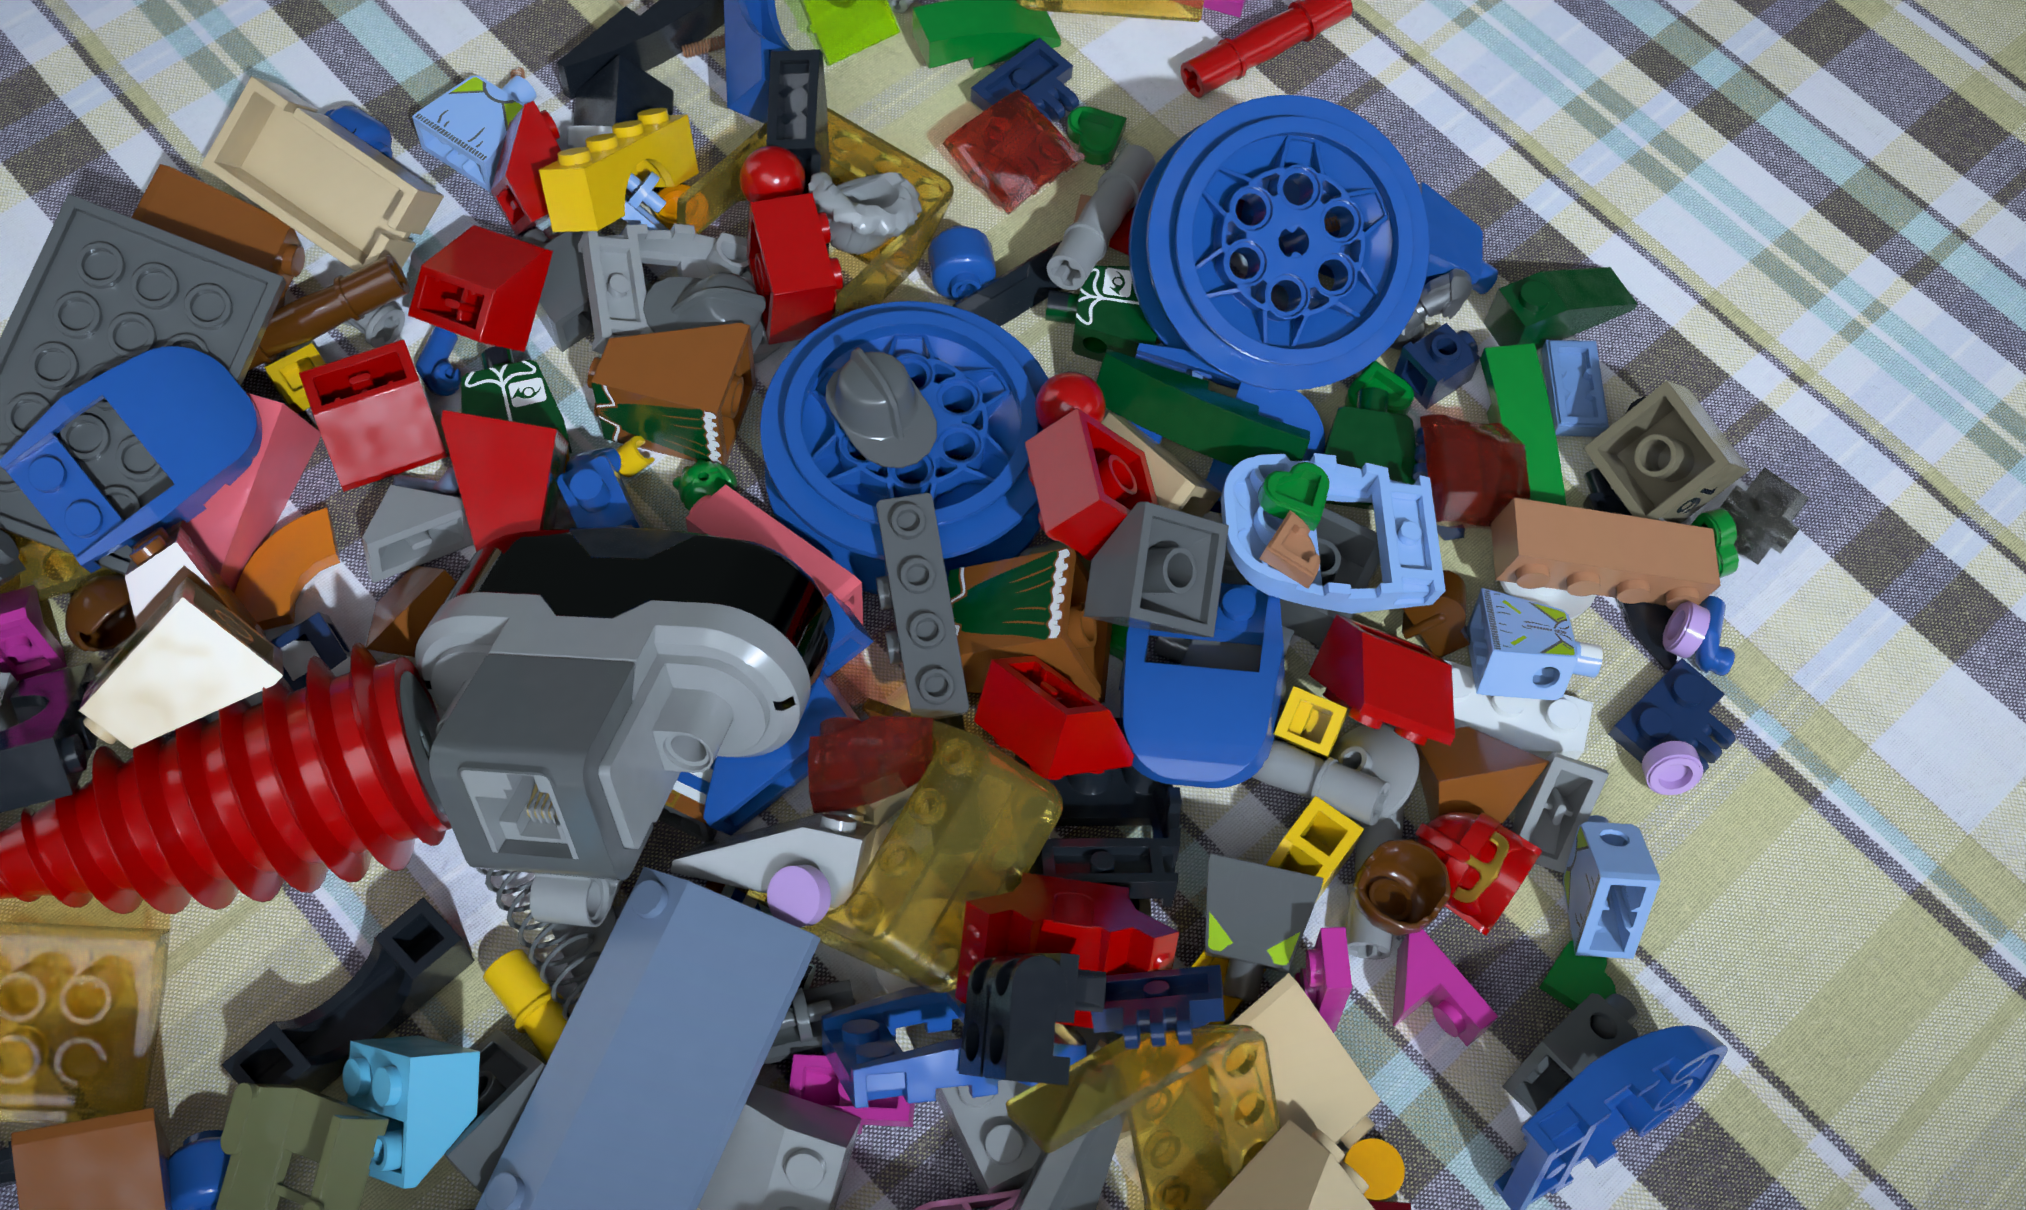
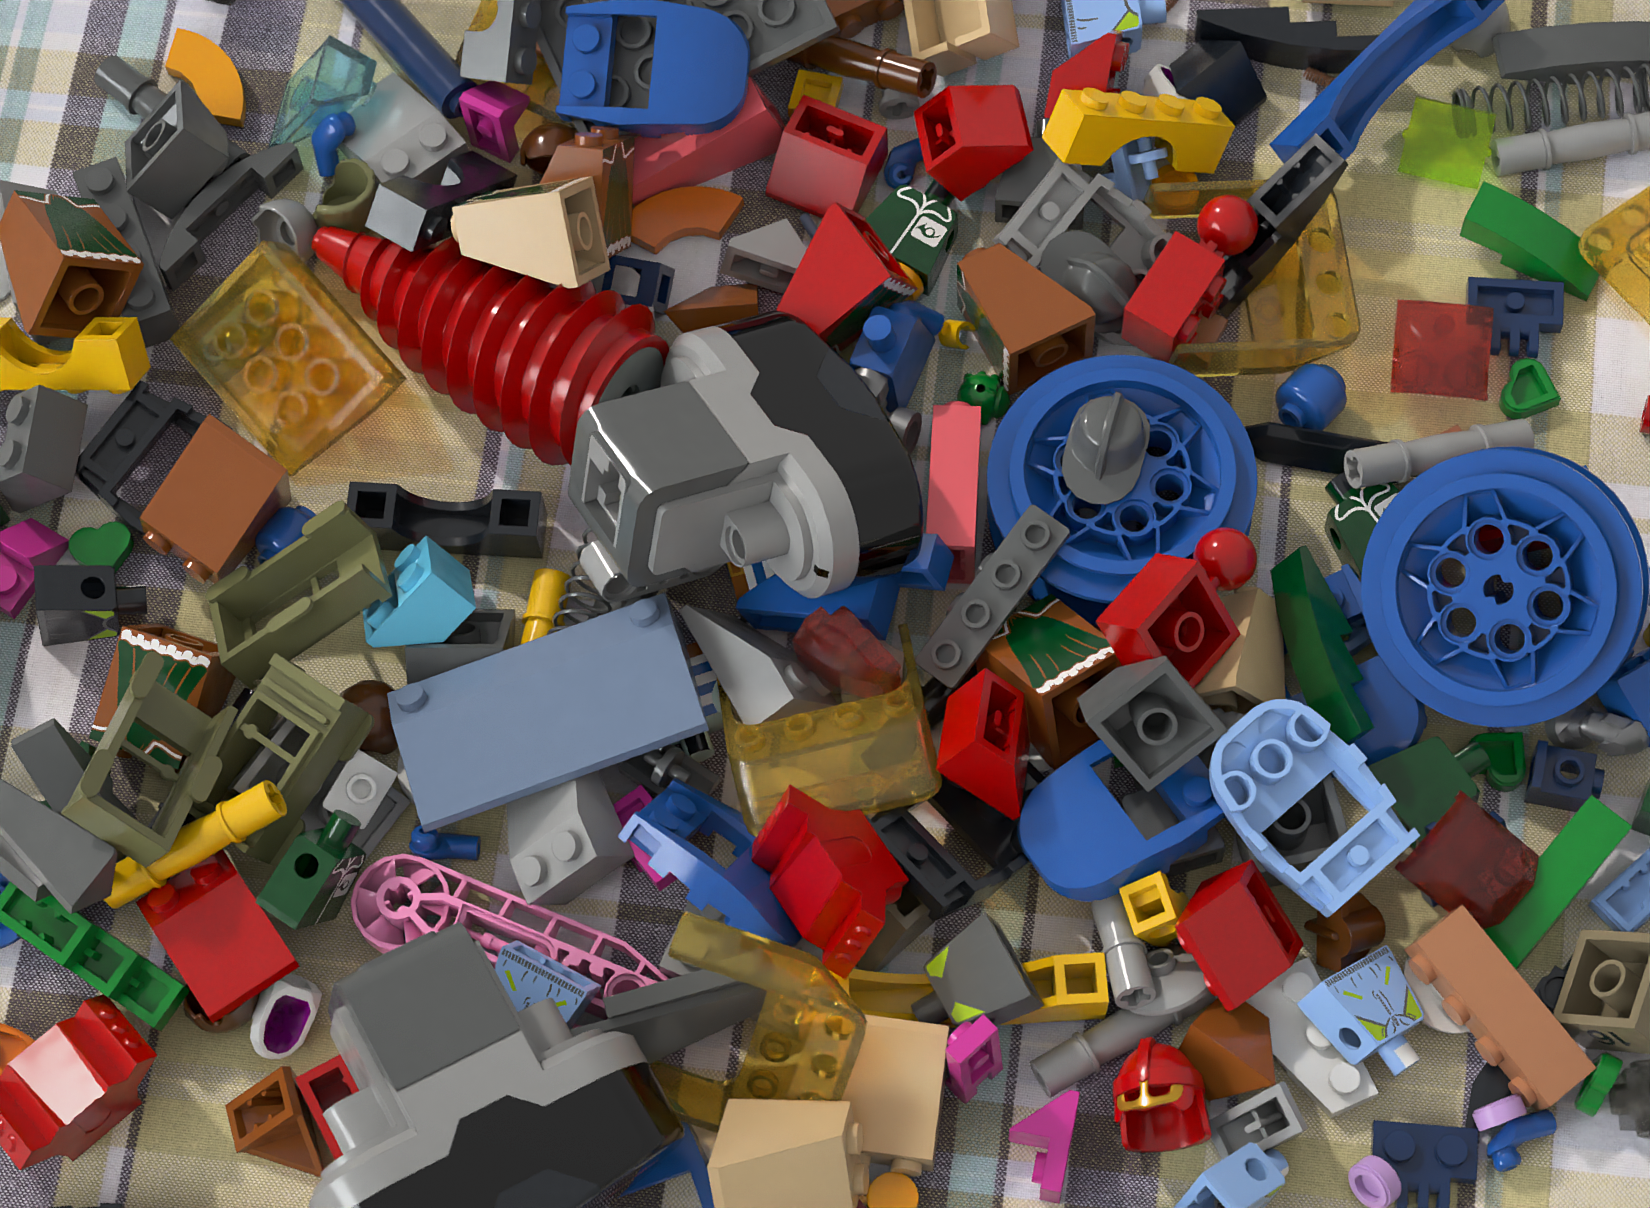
camera: 60 degrees right, 5 degrees up
(799, 895) = (726, 694): lavender tile -> none
(866, 209) = (1269, 299): light grey hair -> none
(1014, 1014) = (747, 862): black hips -> none
(1161, 1003) = (826, 949): dark blue hinge -> none
(1293, 551) = (1250, 786): nougat tile -> none
(1300, 490) = (1300, 756): green tile -> none
(1401, 887) = (1086, 1056): reddish brown hair -> none

